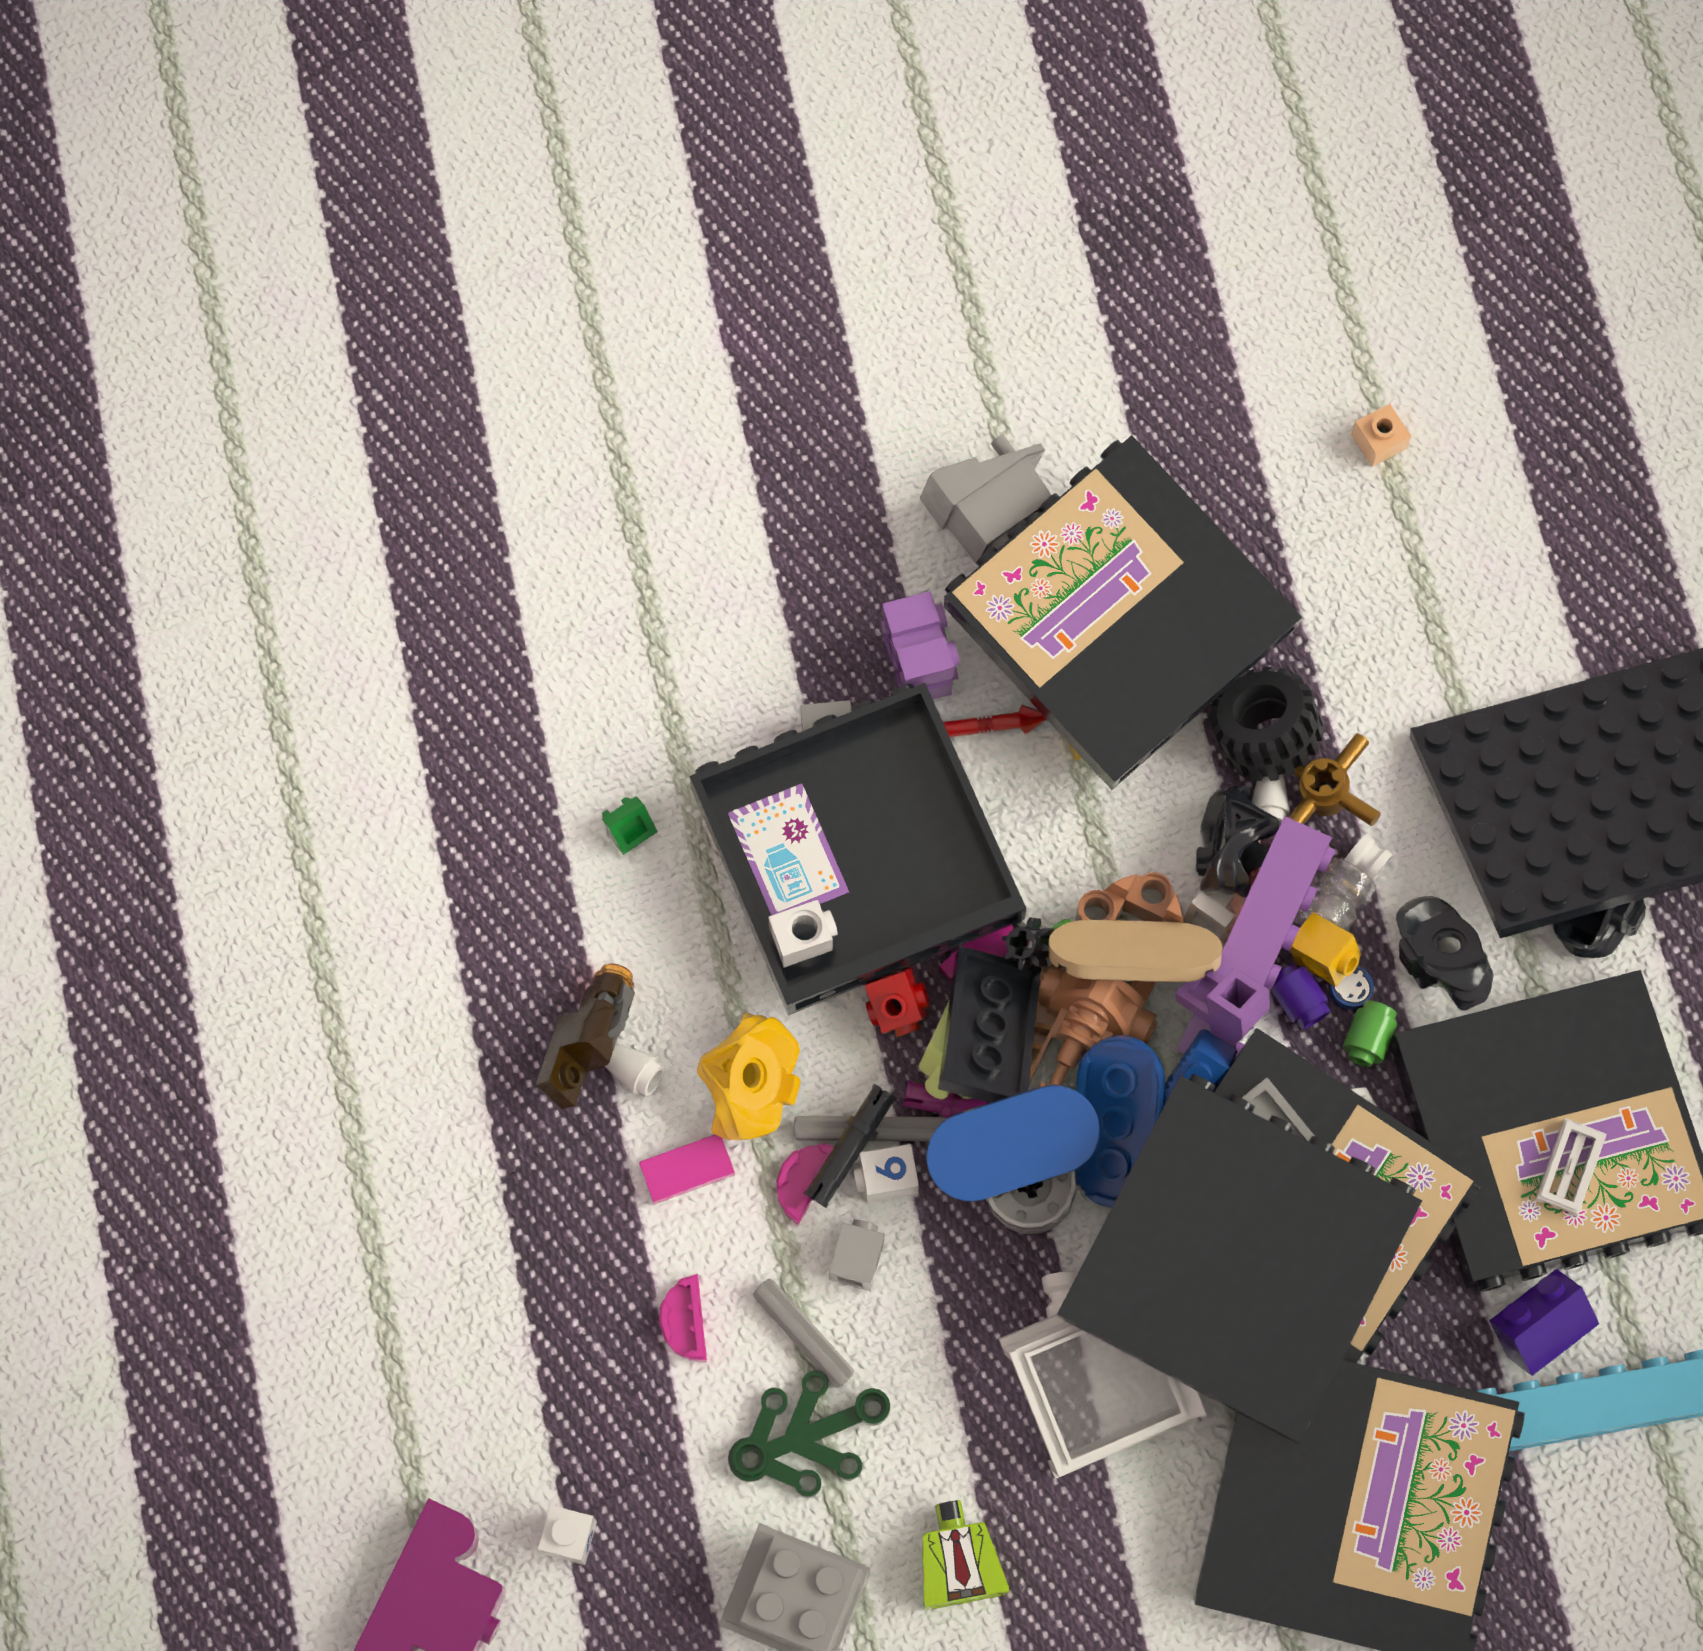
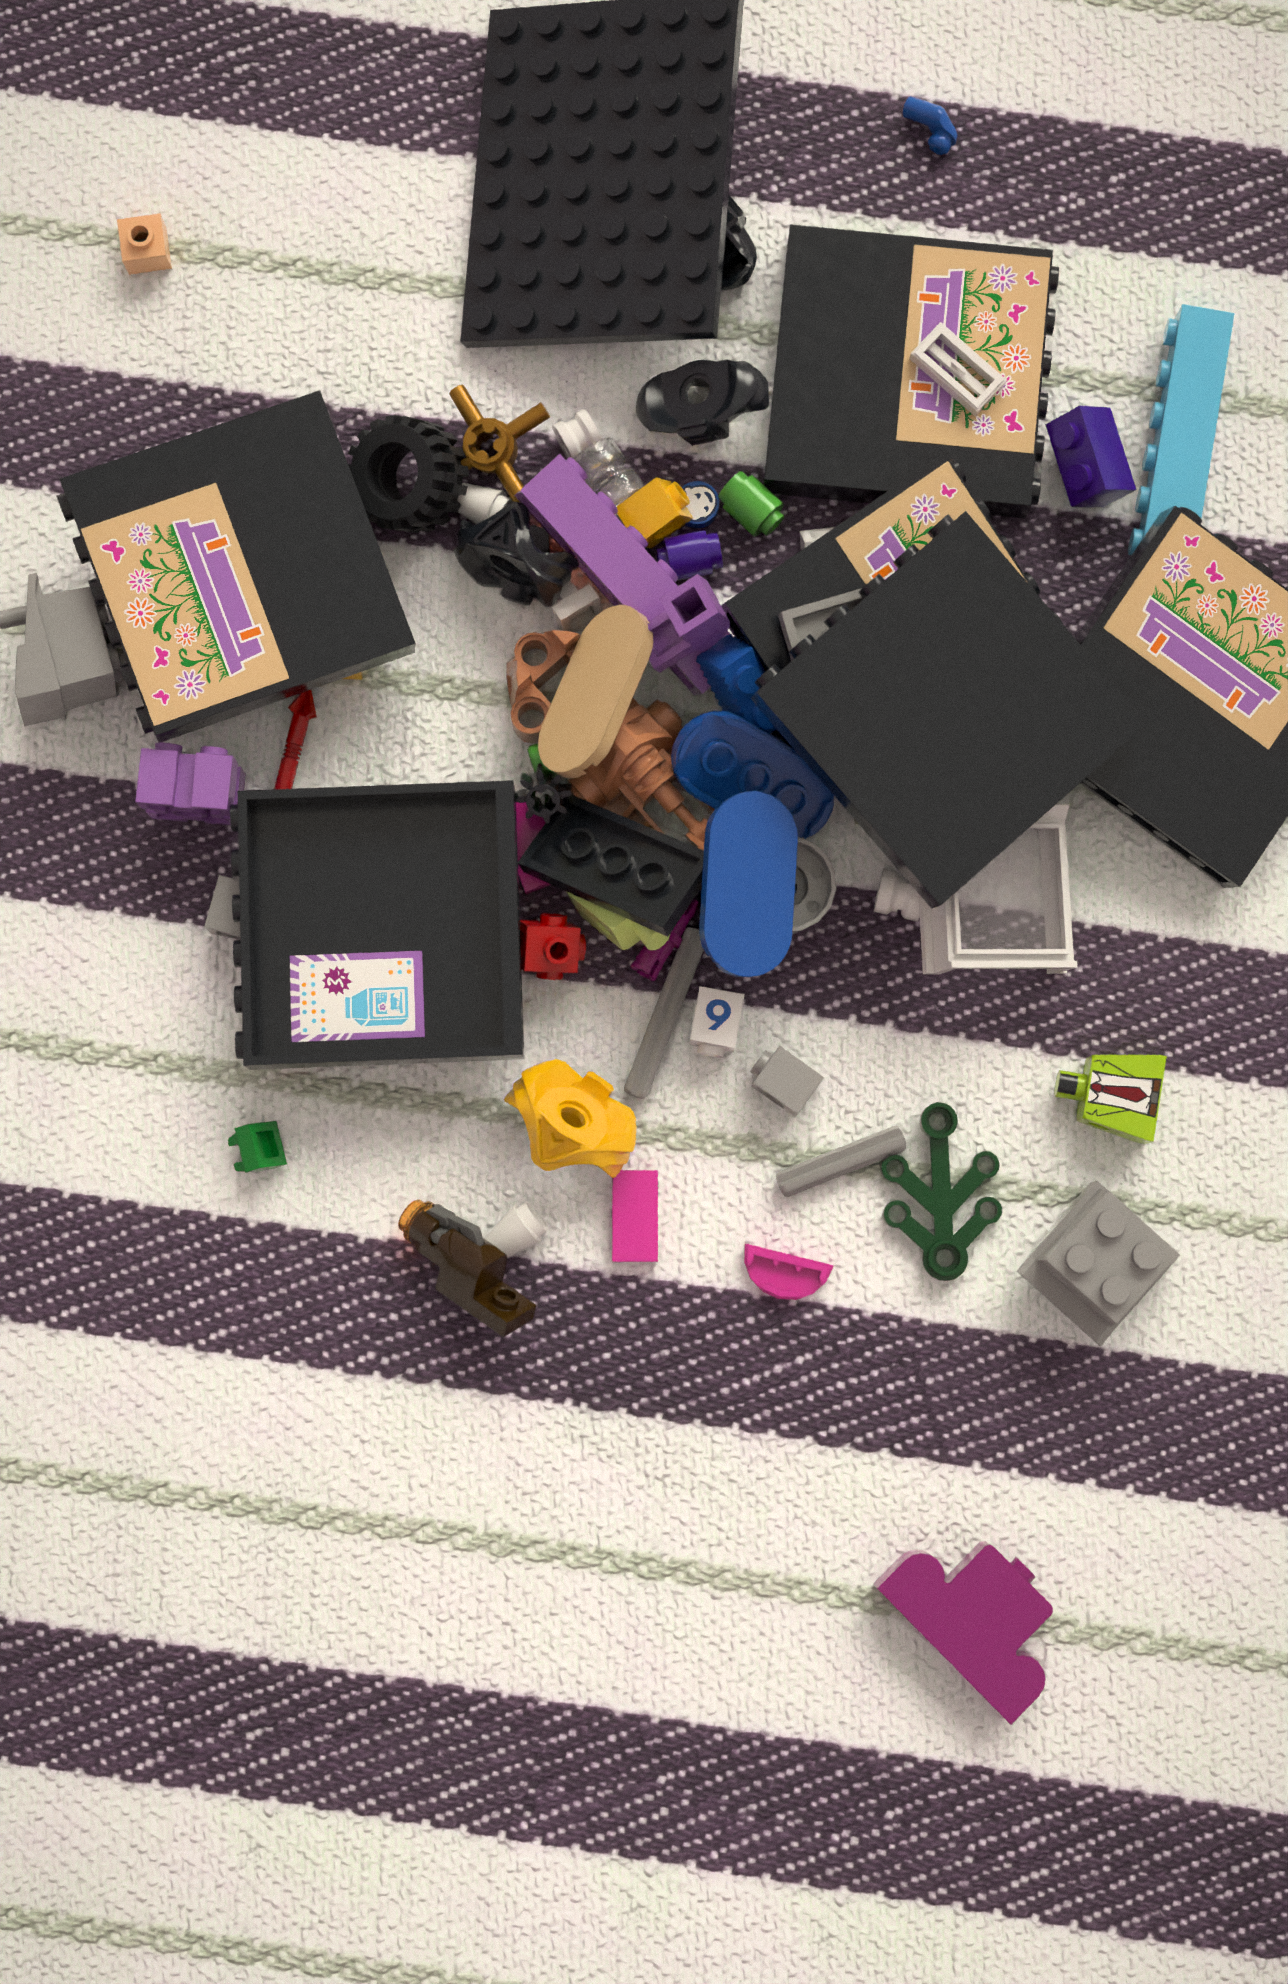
camera: 70 degrees left, 10 degrees up
(567, 1535) = (958, 1462): white brick -> none
(793, 949) = (460, 1031): white brick -> none
(796, 1177) = (686, 1105): dark pink tile -> none
(851, 1143) = (678, 1046): black pin -> none

